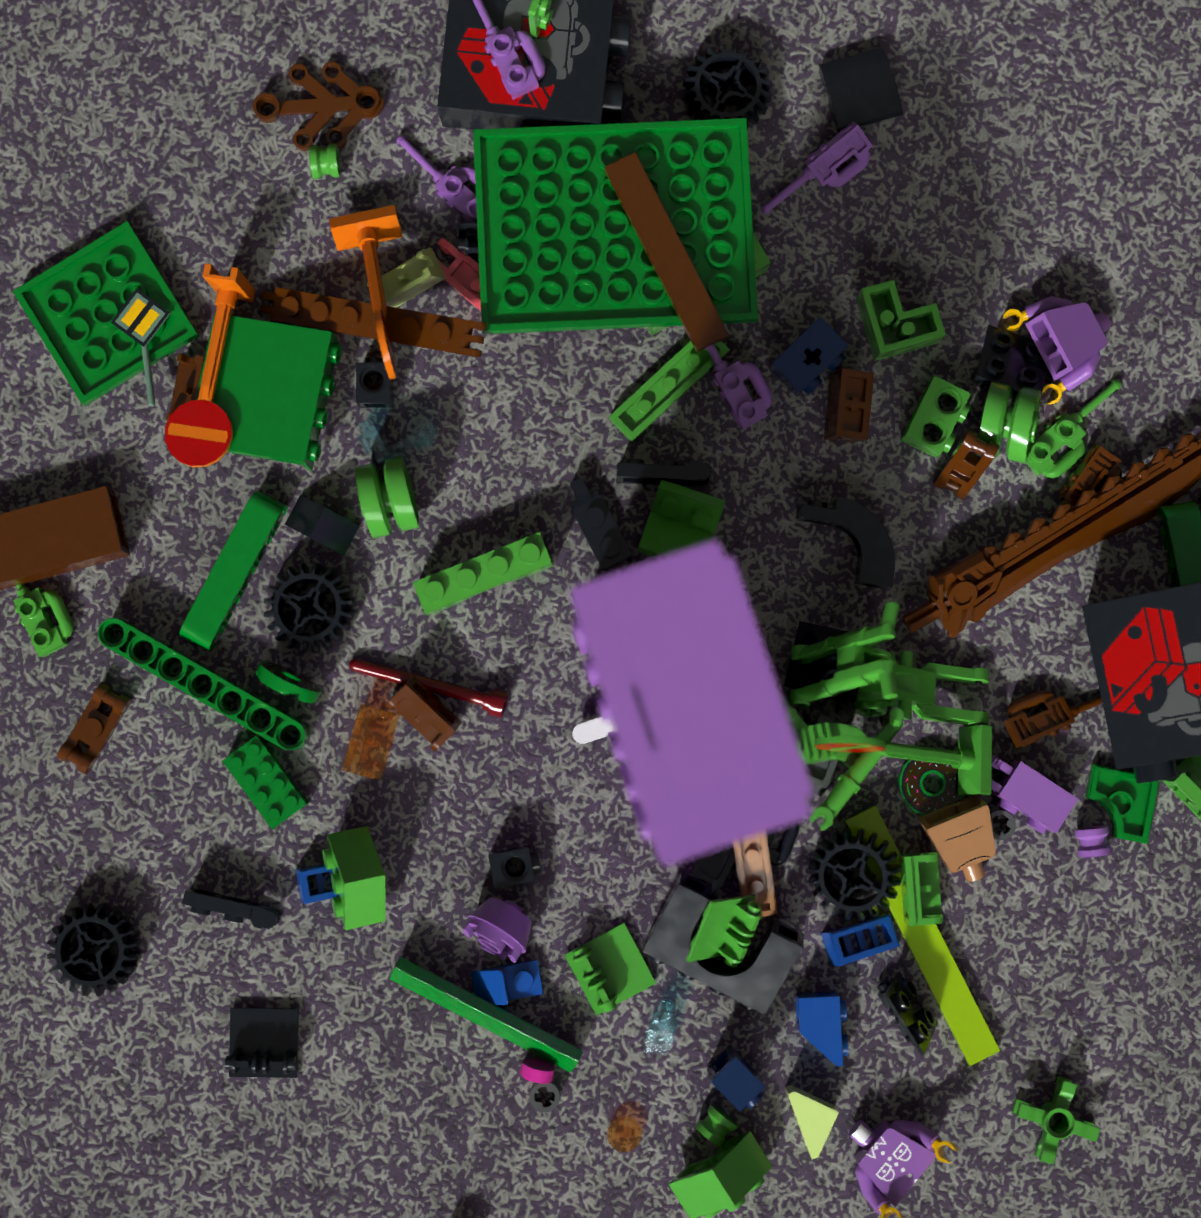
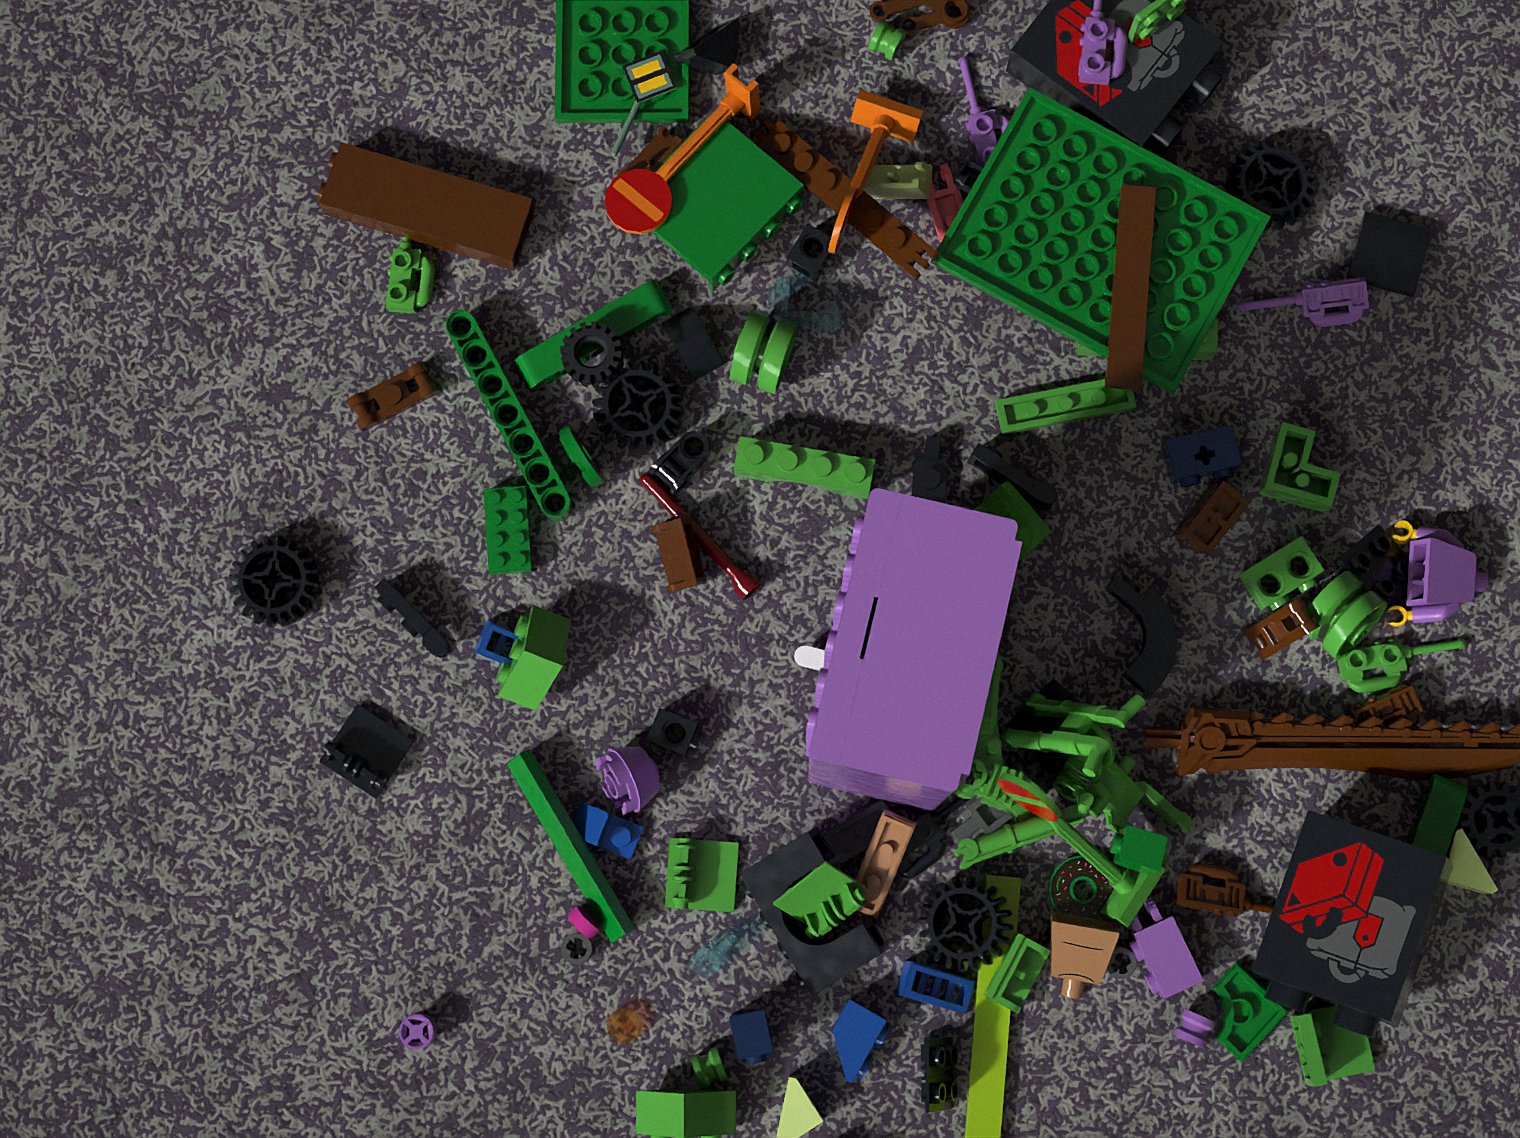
camera: 40 degrees right, 5 degrees down
(181, 261) = (714, 50): none -> black slope
(222, 590) = (592, 334): none -> black tyre
(370, 742) = (618, 551): clear orange hinge -> none
(376, 634) = (680, 462): none -> black piece
(730, 382) = (1119, 436): medium lavender piece -> none
(962, 726) = (1138, 849): none -> green brick

